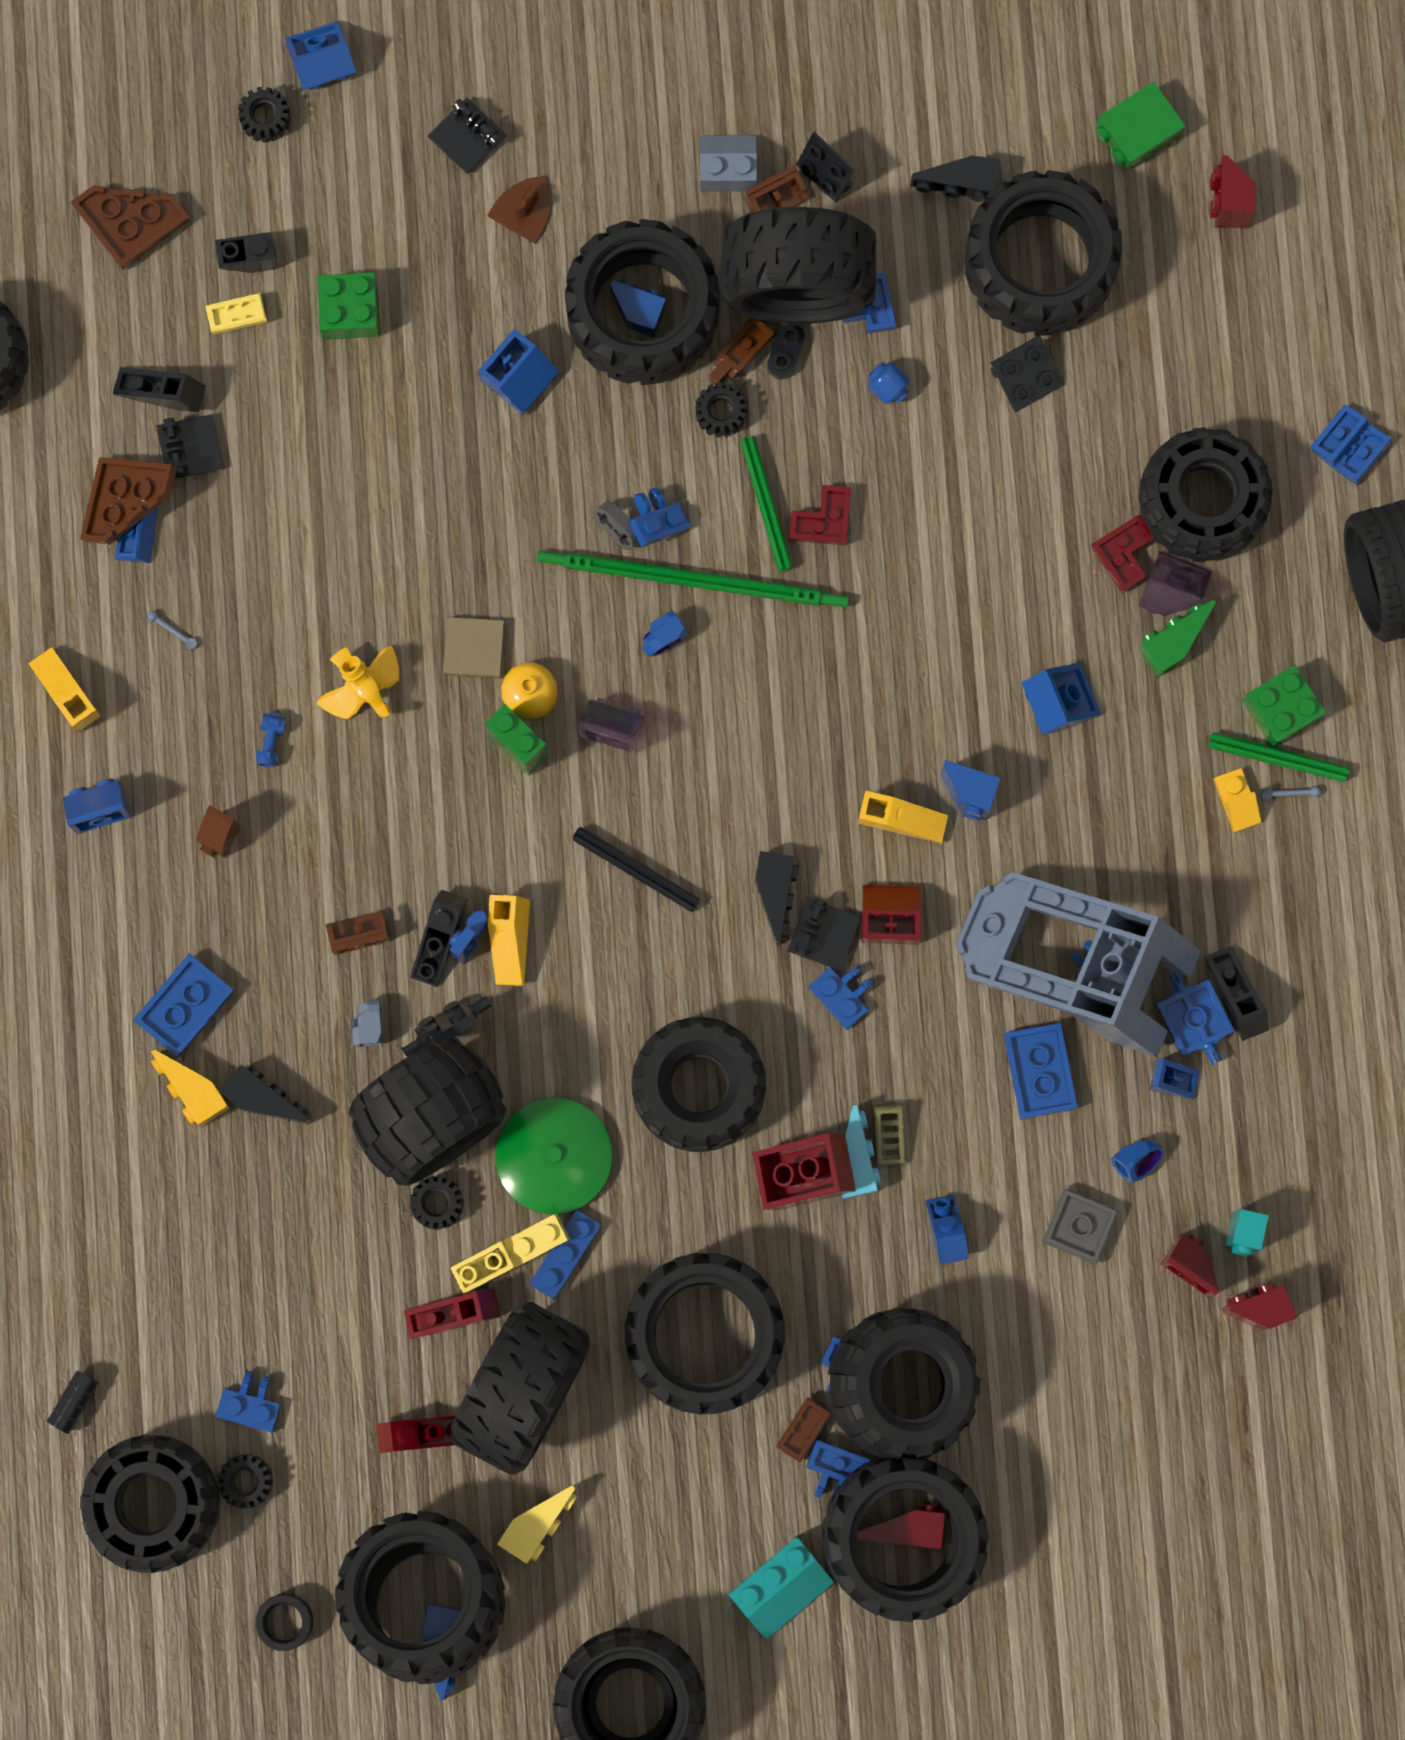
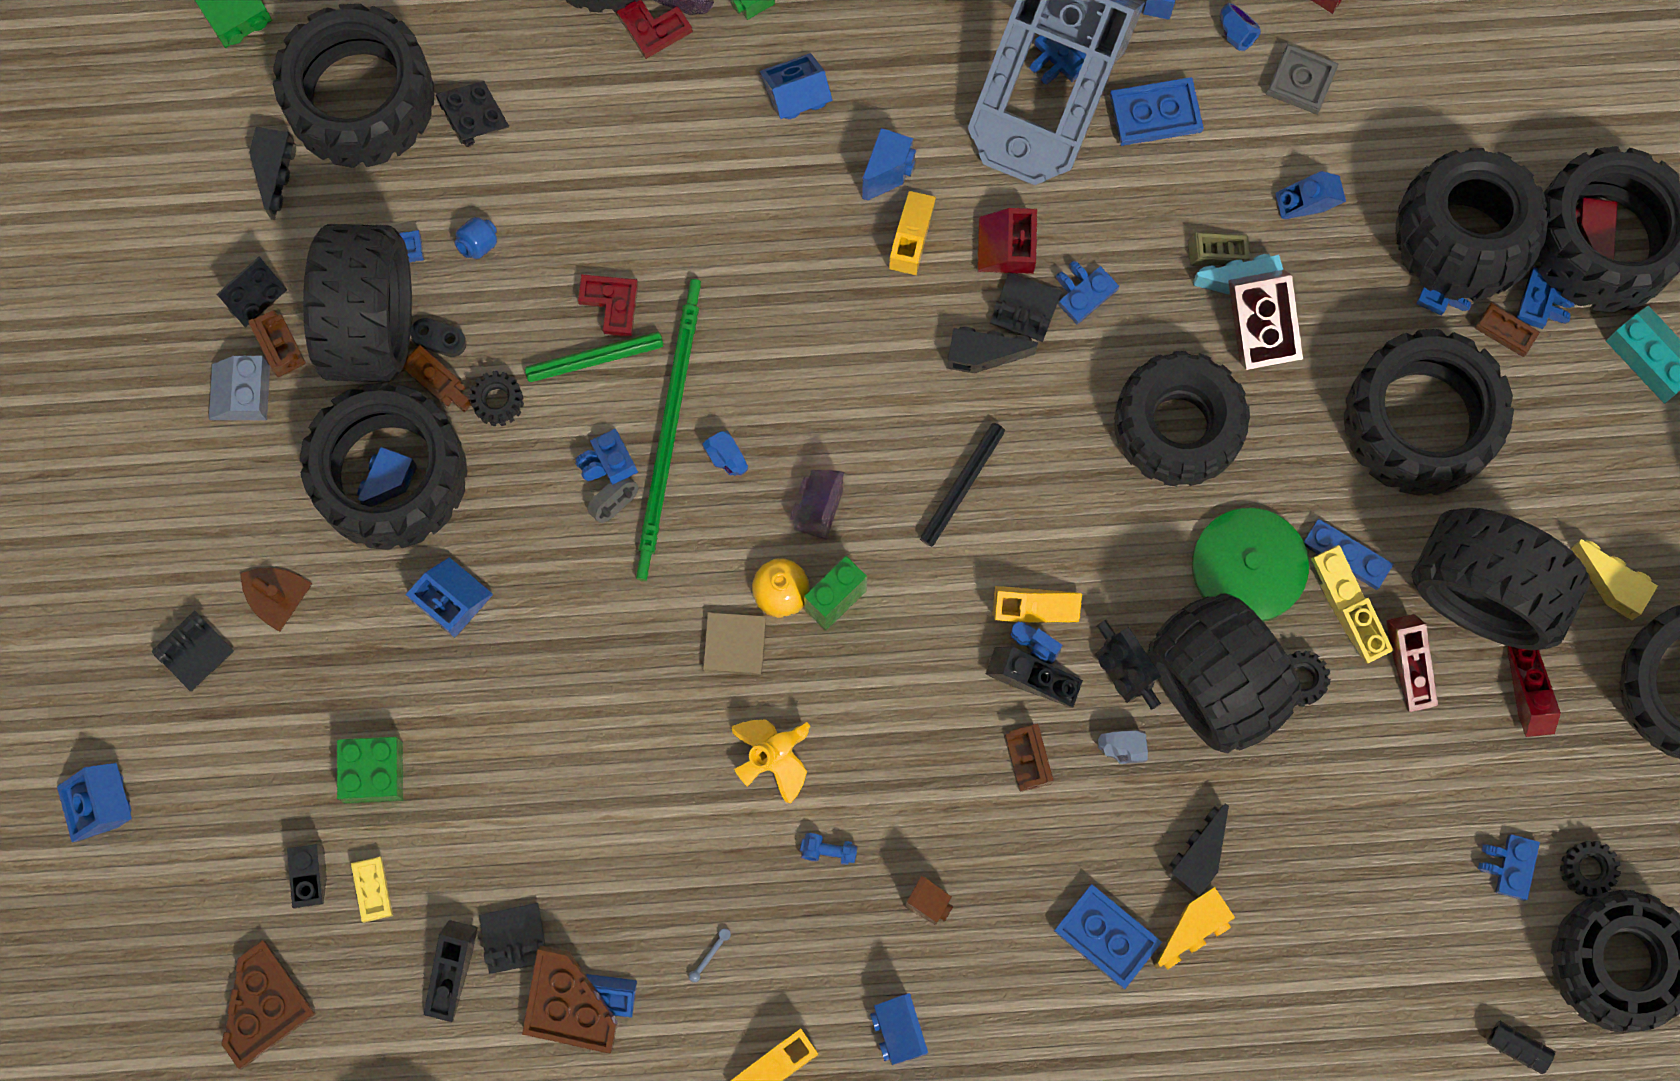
camera: 90 degrees left, 5 degrees down
(258, 99) = (142, 849): black tyre -> none

